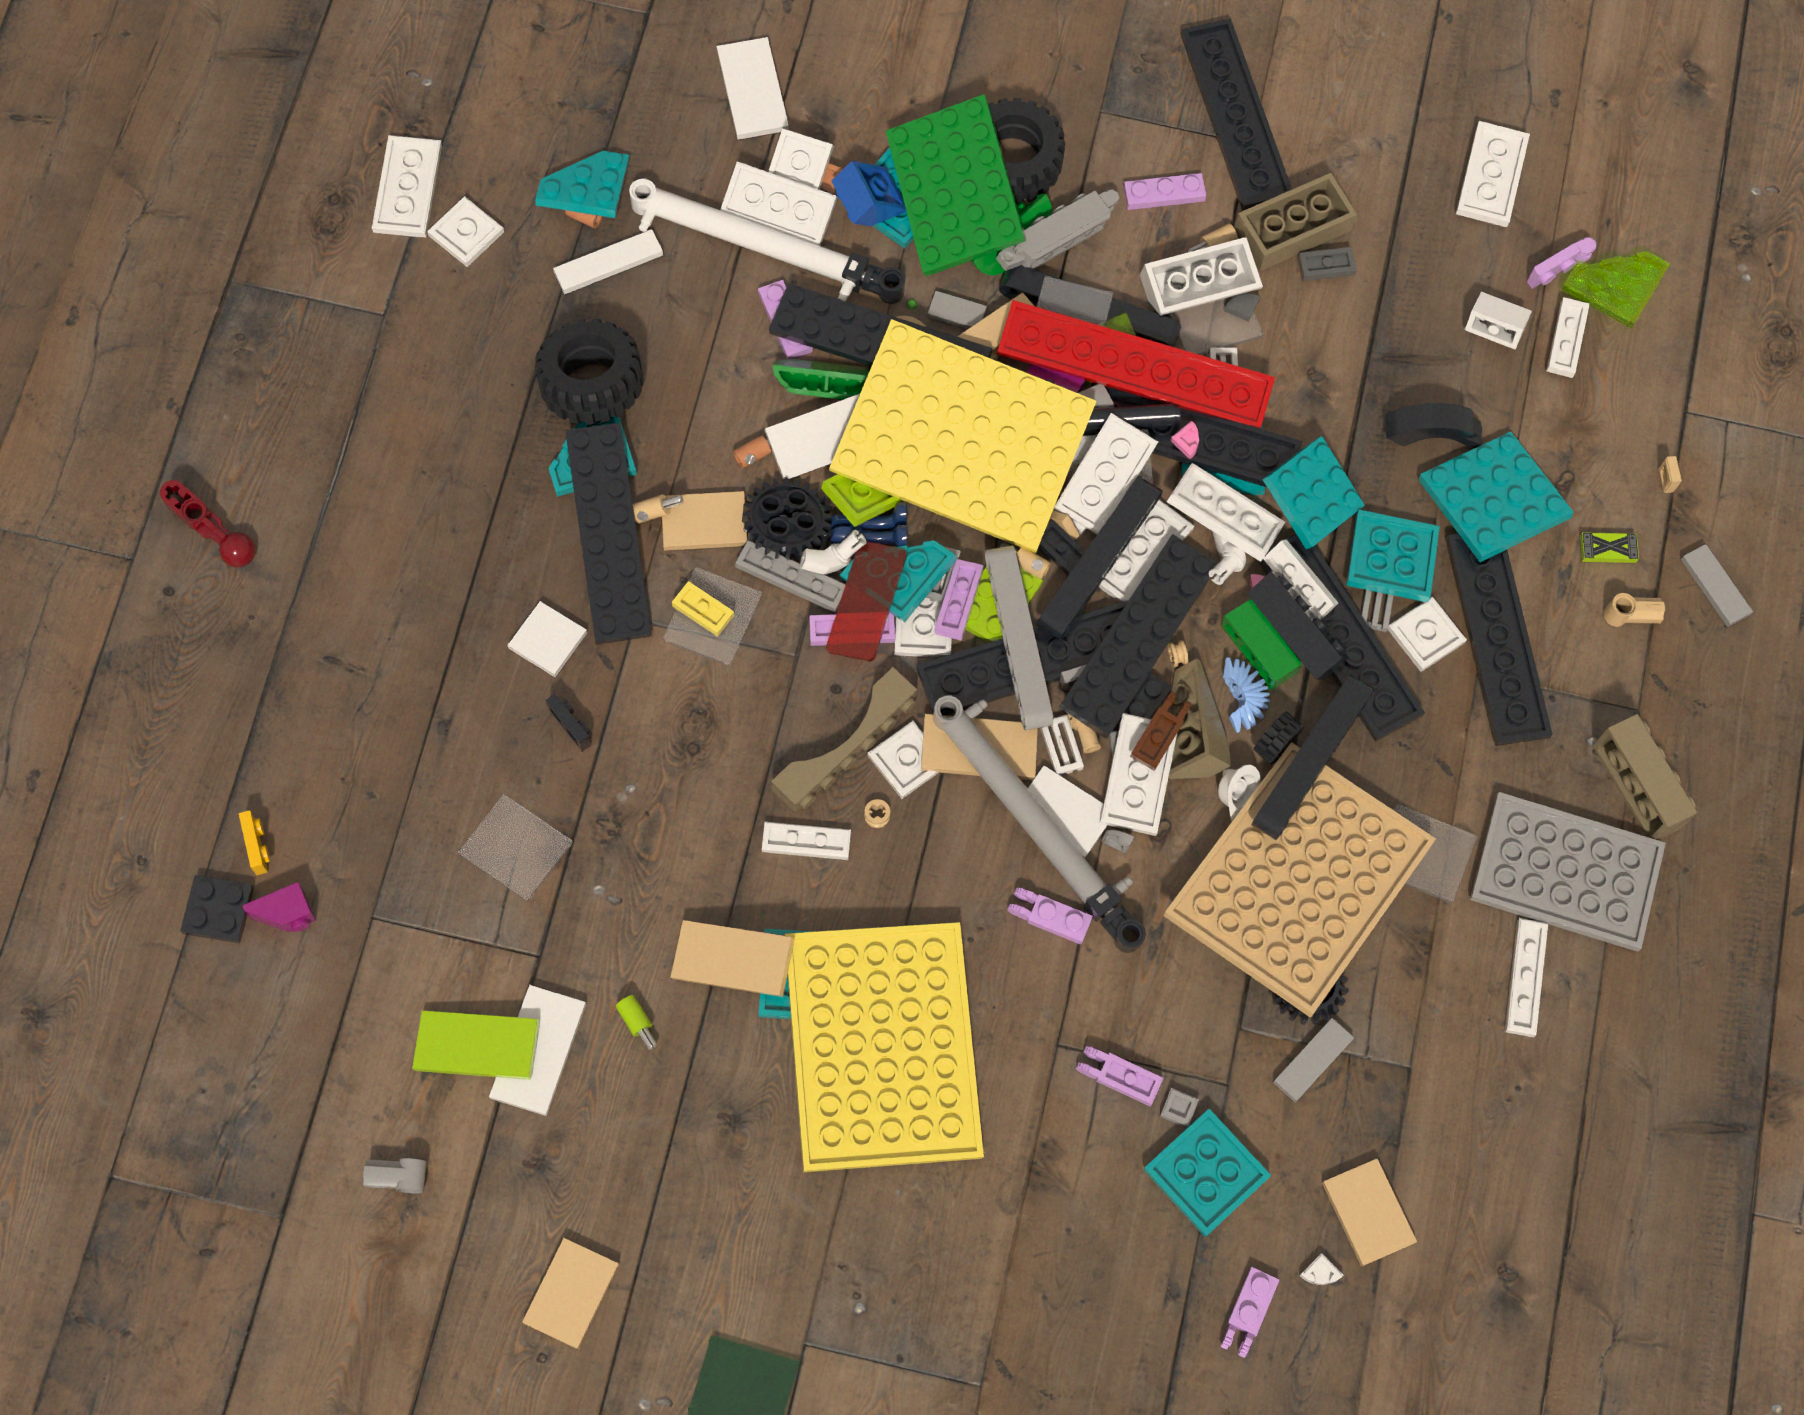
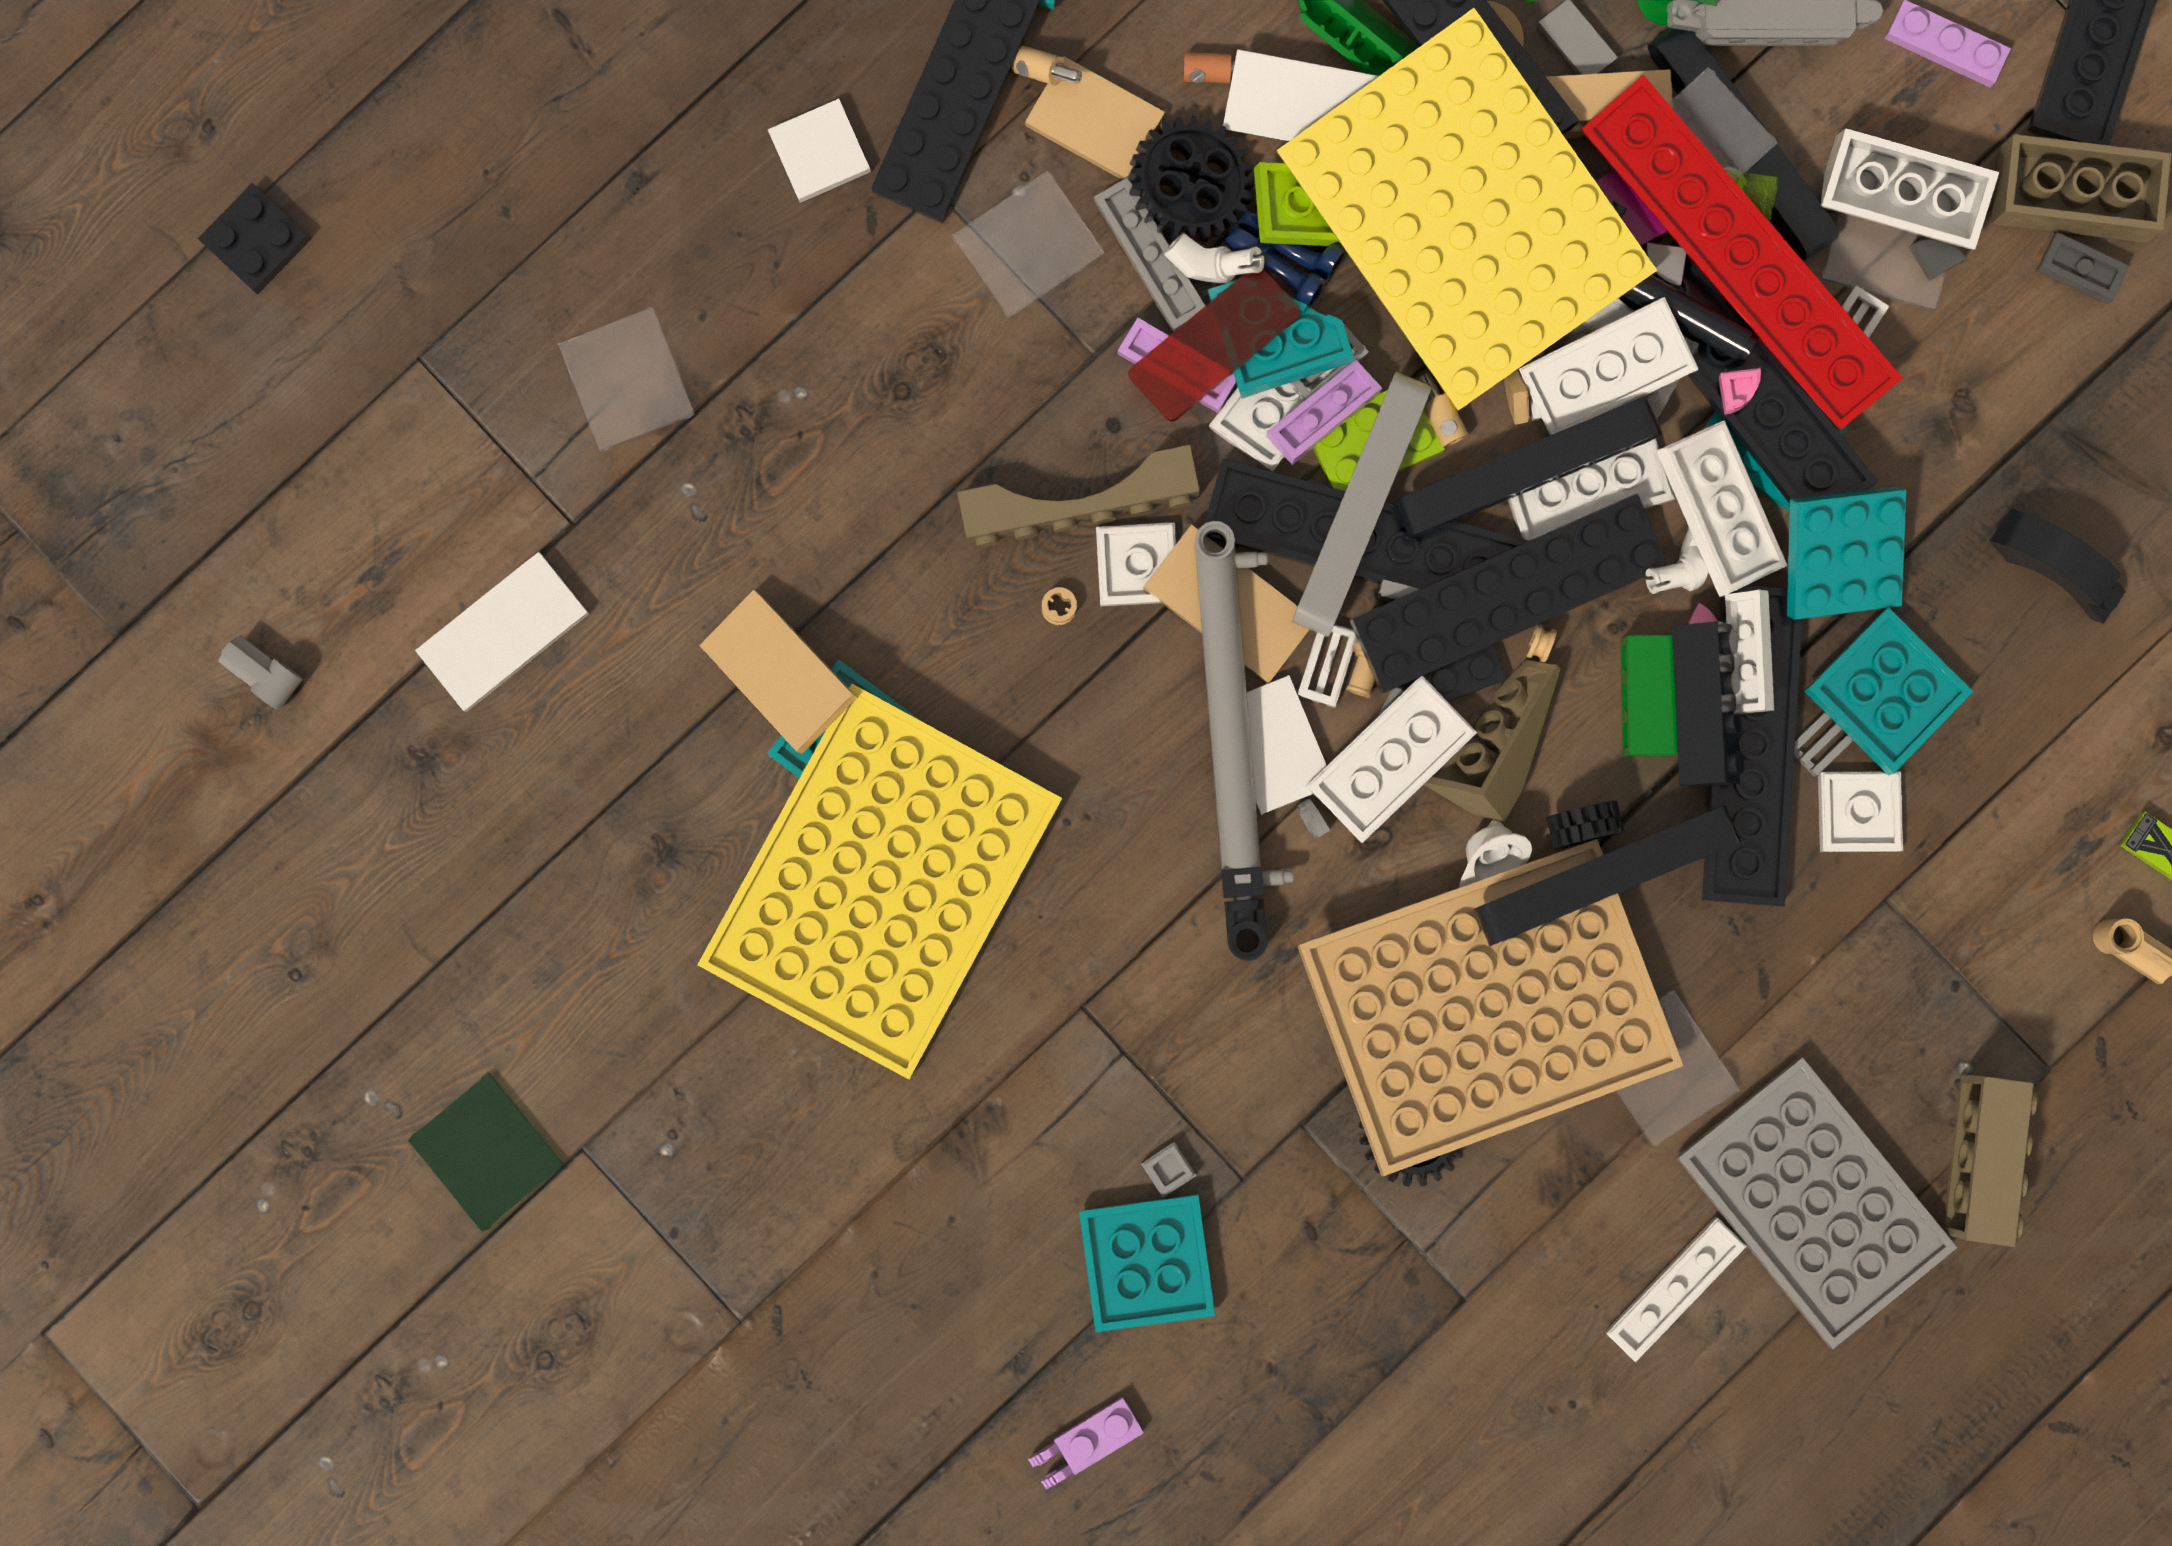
camera: 45 degrees right, 15 degrees up
(257, 854) = (334, 198): yellow plate -> none
(282, 909) = (324, 287): magenta slope -> none
(476, 1045) = (436, 583): lime tile -> none
(563, 714) = (779, 285): black plate -> none
(570, 1293) = (367, 926): tan tile -> none
(636, 1019) = (630, 670): lime piece -> none
(703, 608) = (1019, 229): light yellow plate -> none
(806, 840) = (957, 585): white tile -> none
(1052, 916) = (1178, 858): lavender hinge -> none
(1060, 547) = (1493, 423): black plate -> none
(1122, 1076) = (1128, 1094): lavender hinge -> none
(1159, 734) = (1445, 730): reddish brown hinge -> none
(1222, 235) = (1965, 148): tan piece -> none
(1247, 694) = (1589, 743): light blue hair -> none
(1313, 1060) = (1359, 1218): light grey tile -> none
(1321, 1272) = (1198, 1454): white tile -> none
(1369, 1212) = (1298, 1427): tan tile -> none
(1495, 496) = (2071, 699): teal plate -> none
(1500, 645) = (1945, 871): black plate -> none

